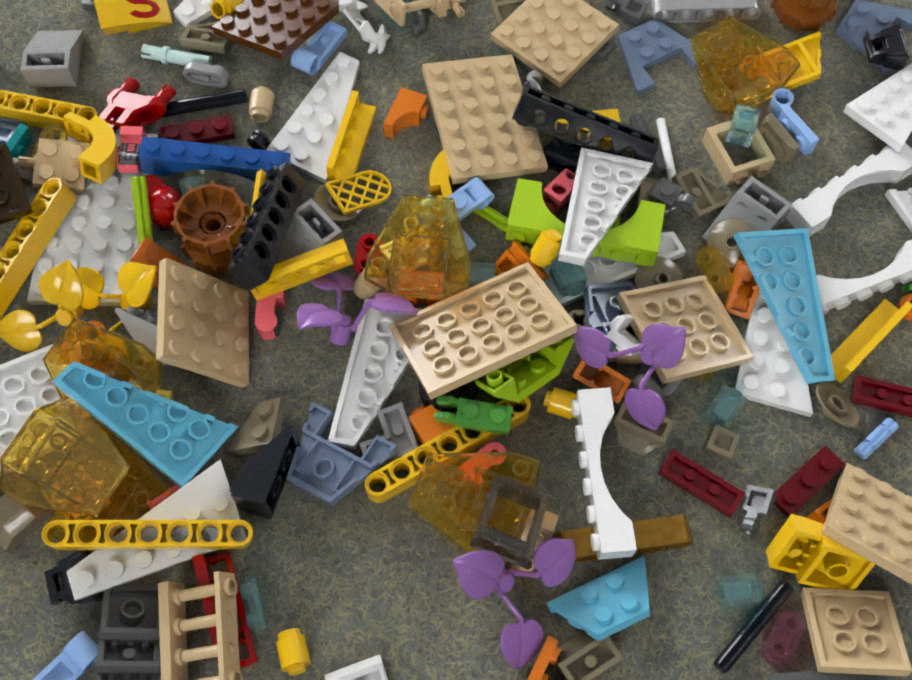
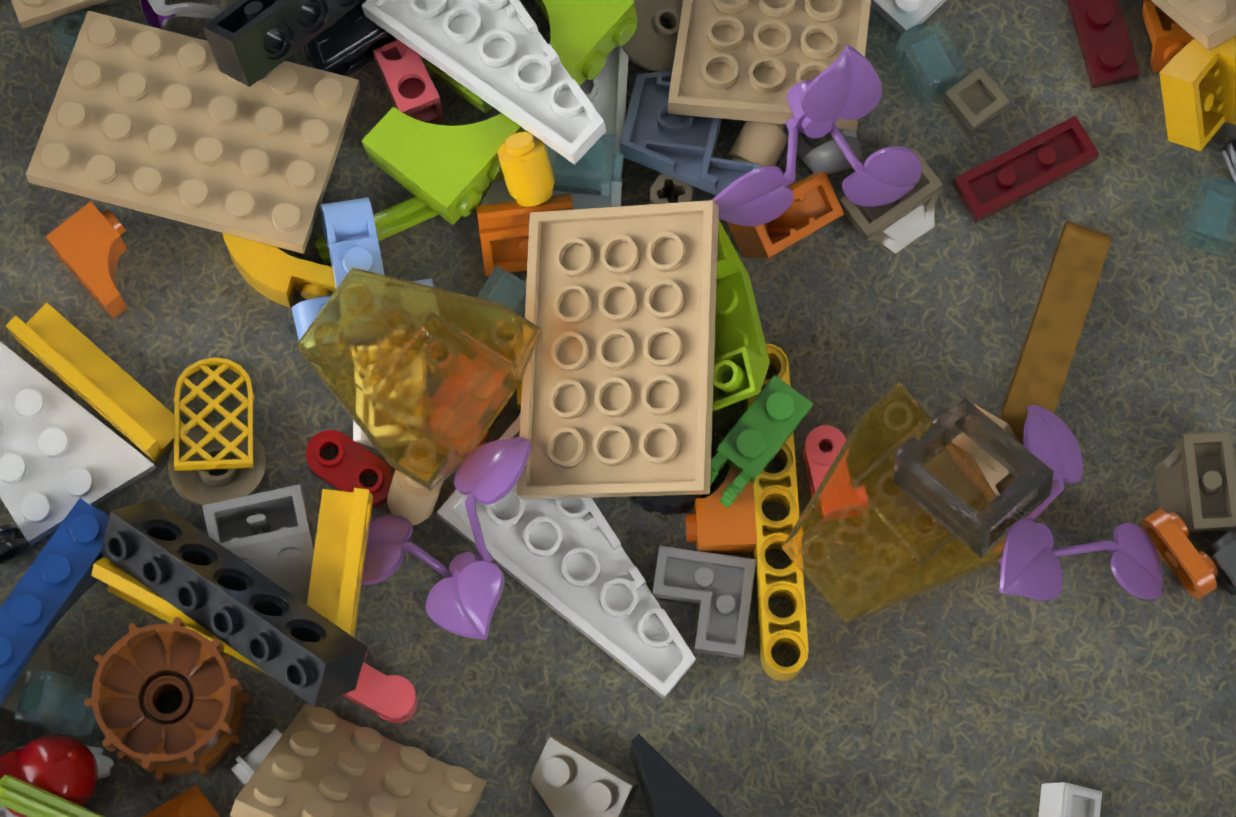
camera: 65 degrees left, 10 degrees up
(328, 469) = (711, 720): sand blue wing -> none
(559, 402) = (793, 296): yellow brick -> none
(607, 602) = (1135, 407): medium azure wing -> none
(612, 528) = (1044, 338): white arch -> none
(622, 337) = (755, 143): white bracket -> none
(756, 505) = (1100, 111): plate -> none

